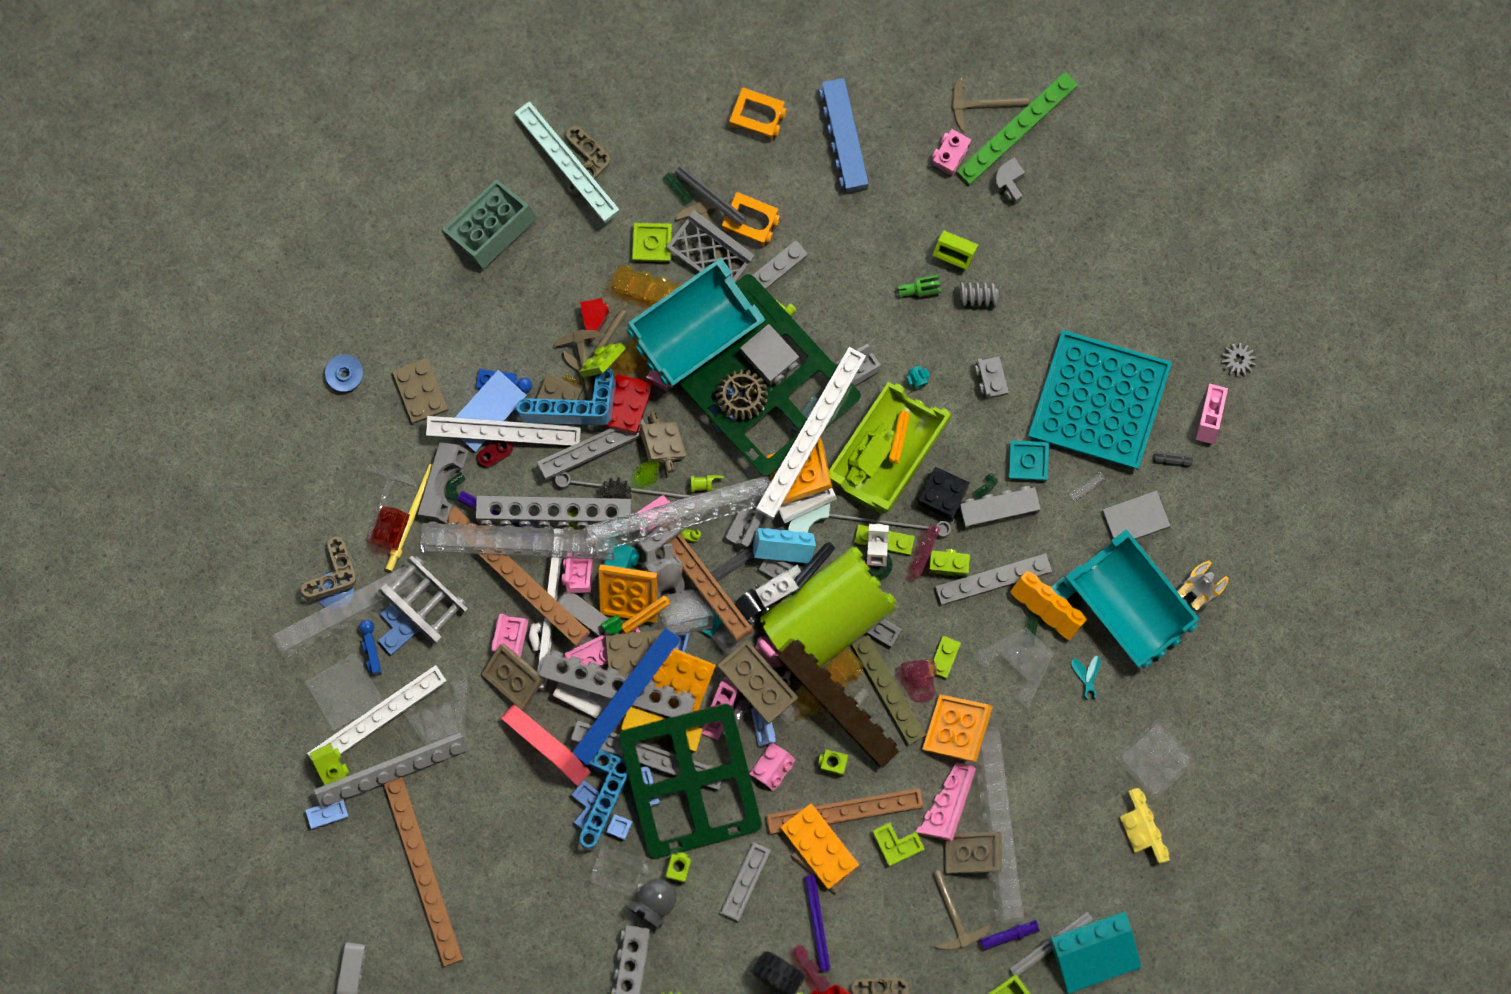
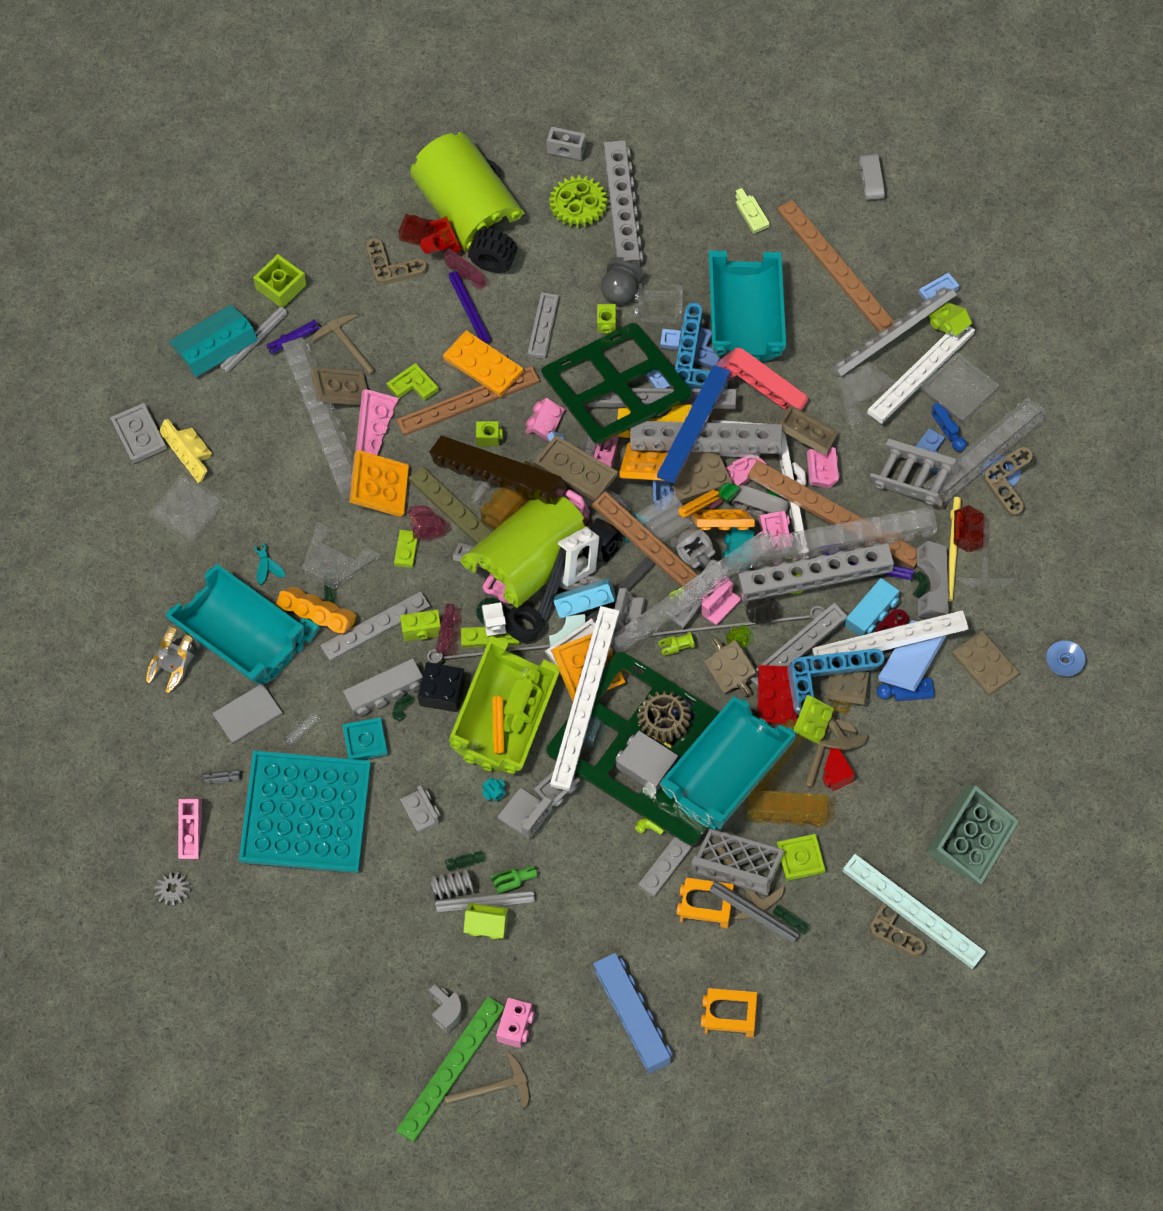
camera: 165 degrees right, 15 degrees down
(491, 961) = (751, 212): none -> yellowish green hinge
(508, 470) = (873, 608): none -> medium azure brick
(530, 834) = (747, 305): none -> teal cylinder
(837, 530) = (518, 632): none -> black tyre
(894, 348) = (525, 813): none -> light grey bracket
(951, 274) = (492, 900): none -> light grey axle
(961, 317) = (464, 860): none -> clear green axle
(1191, 859) = (138, 433): none -> light grey plate

